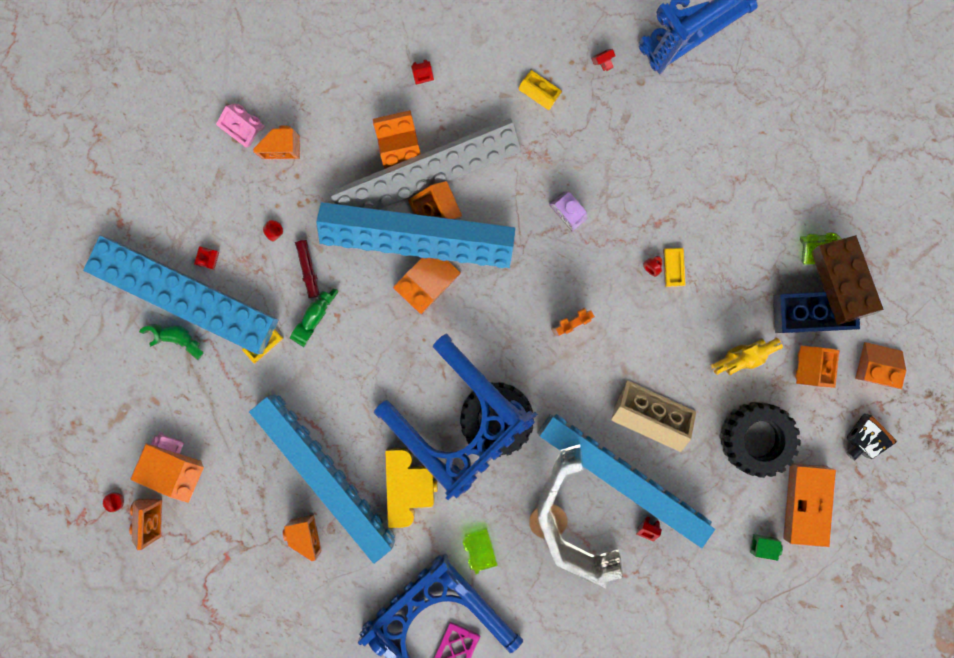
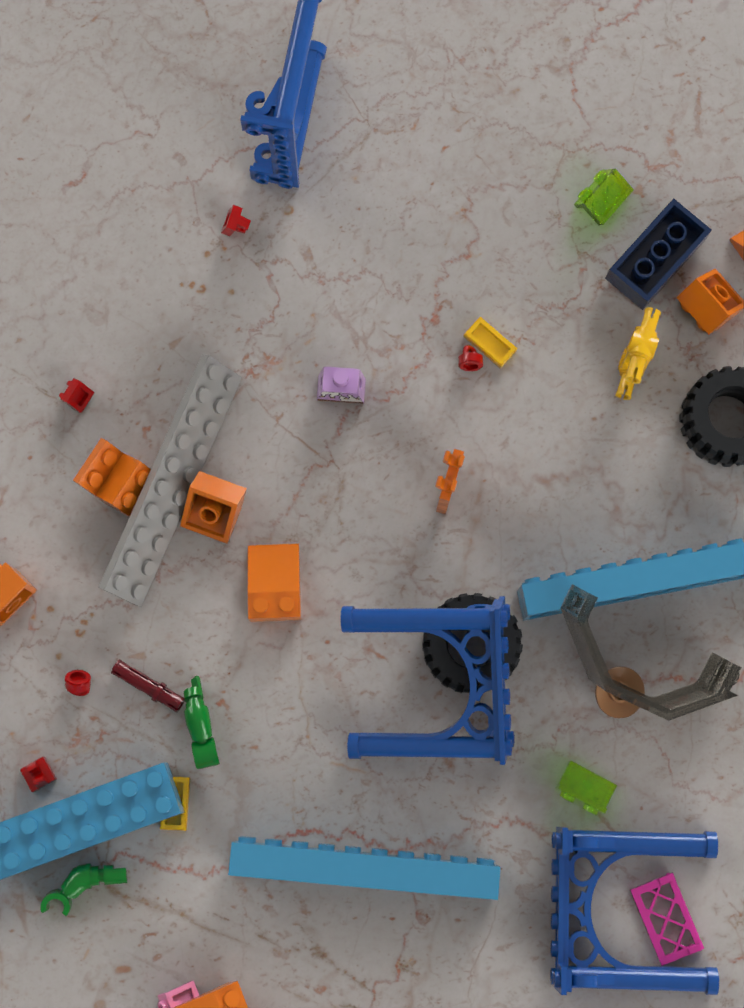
camera: 50 degrees left, 10 degrees down
(303, 536) = (402, 948): orange slope -> none
(406, 487) = (454, 798): yellow brick -> none
(415, 235) = (220, 548): dark azure brick -> none
(539, 90) = (203, 306): yellow slope -> none
(649, 531) = (721, 605): red tile -> none
(654, 416) = (614, 494): tan slope -> none
(847, 279) = (653, 198): reddish brown brick -> none

